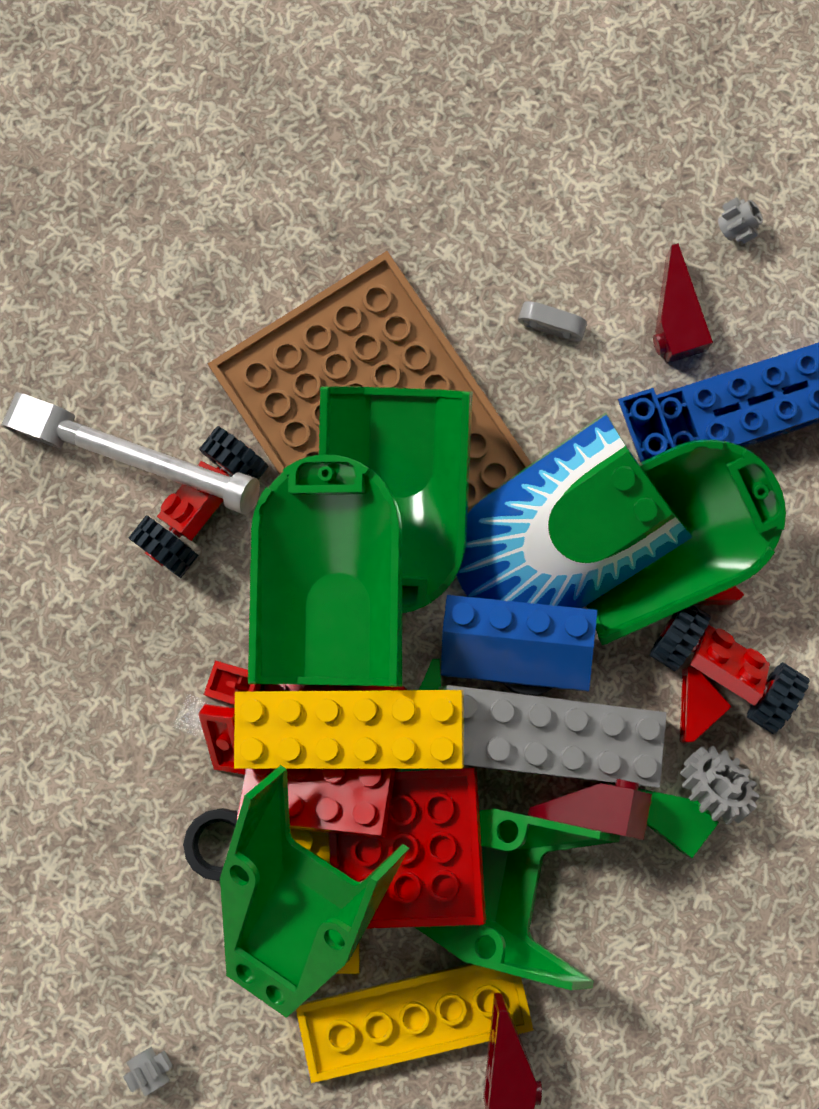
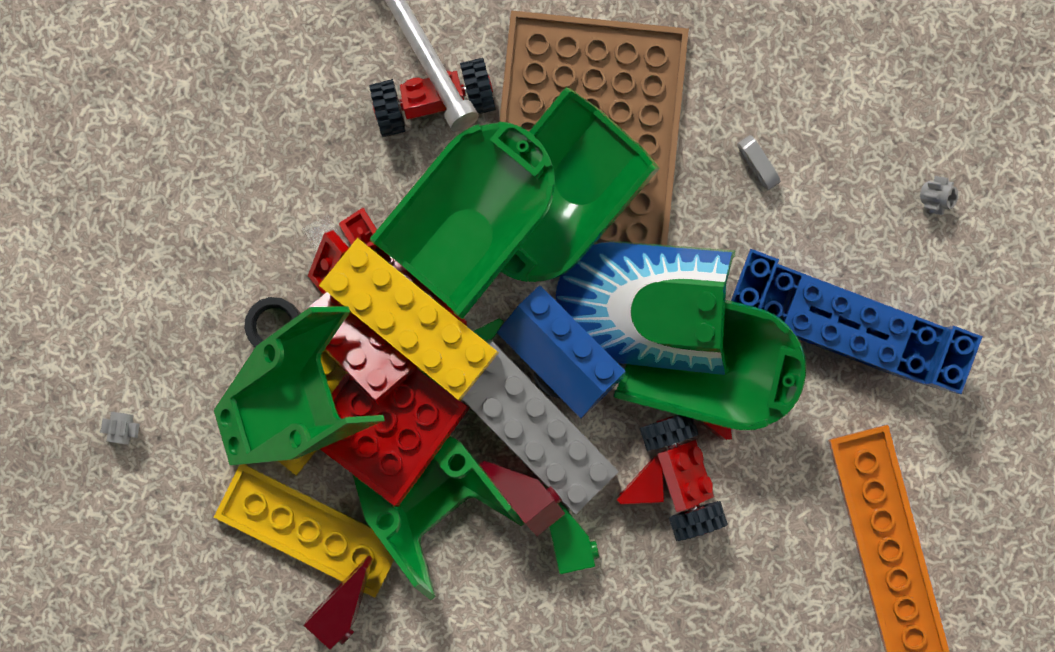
camera: 45 degrees right, 5 degrees up
(680, 320) = (843, 228): dark red slope -> none
(719, 785) = (615, 544): light grey gear -> none

